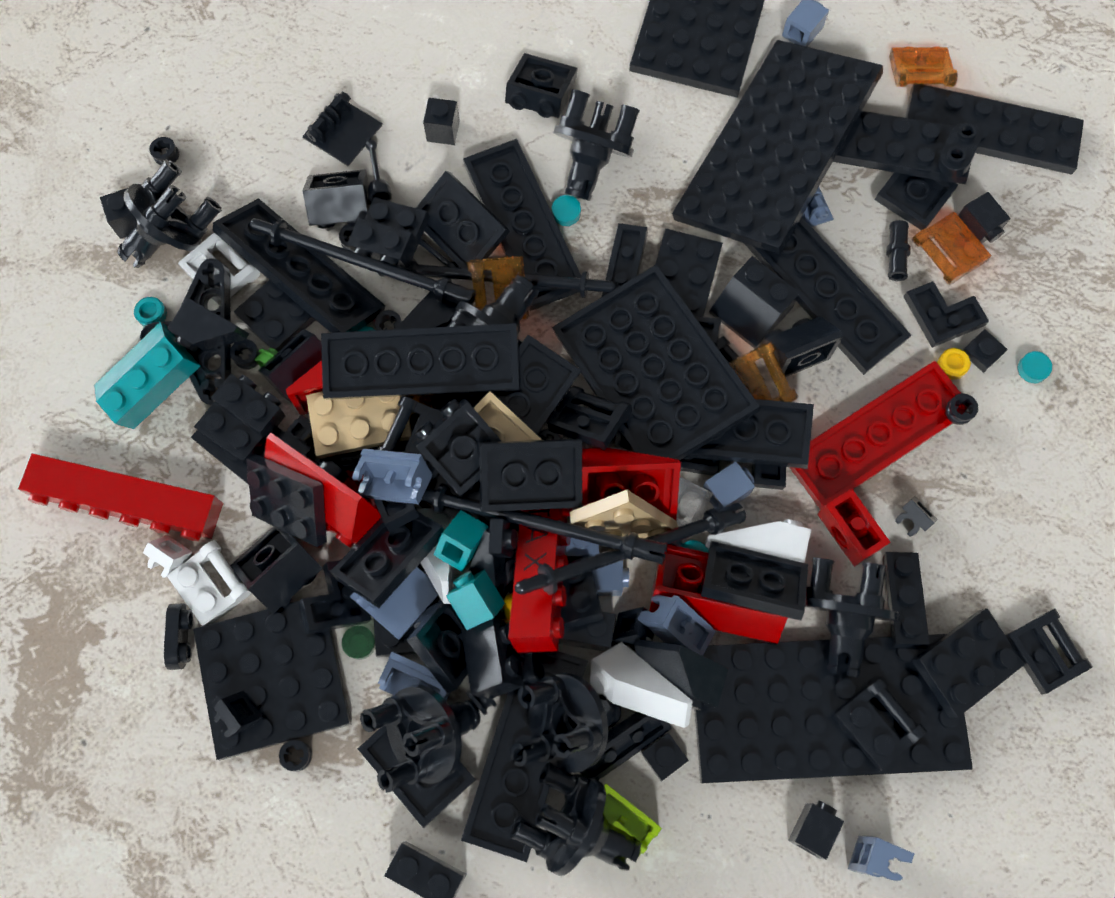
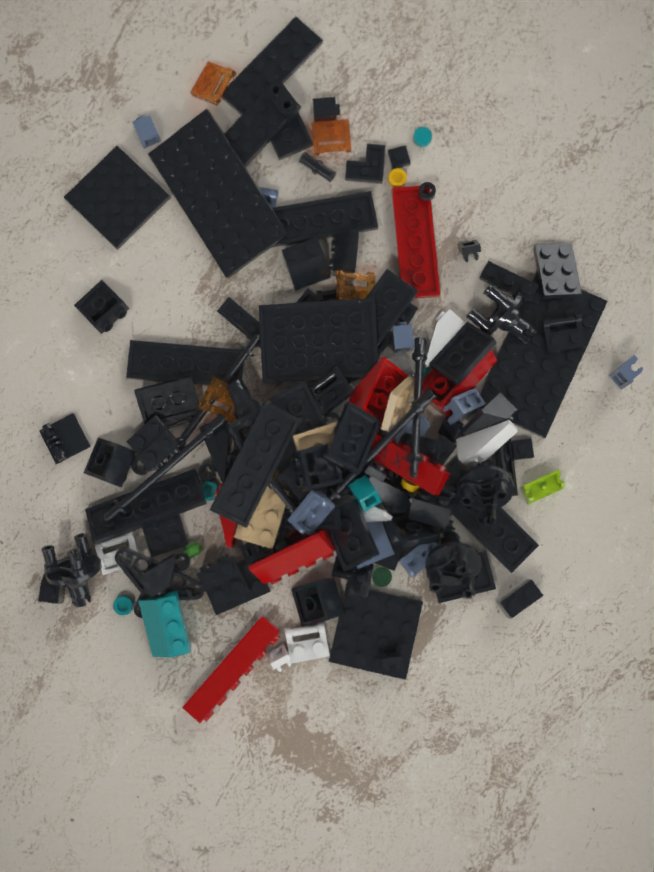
camera: 60 degrees left, 10 degrees up
(160, 143) = (16, 546): black bush -> none
(176, 645) = (321, 667): black plate -> none
(287, 500) = (288, 576): black plate -> none
(292, 362) = (207, 535): black brick -> none
(298, 745) = (428, 642): black bush -> none
(378, 187) = (117, 436): black hinge -> none
(441, 121) = (94, 377): black brick -> none
(475, 598) = (398, 502): teal brick -> none
(566, 210) = (190, 335): teal tile -> none
(577, 828) = (536, 511): black piece -> none
(592, 144) = (162, 299): black piece -> none
(689, 266) = (264, 287): black plate -> none
(817, 829) = (596, 394): black brick -> none
(853, 527) = (459, 286): red brick -> none
(1040, 656) = (571, 232): black plate -> none

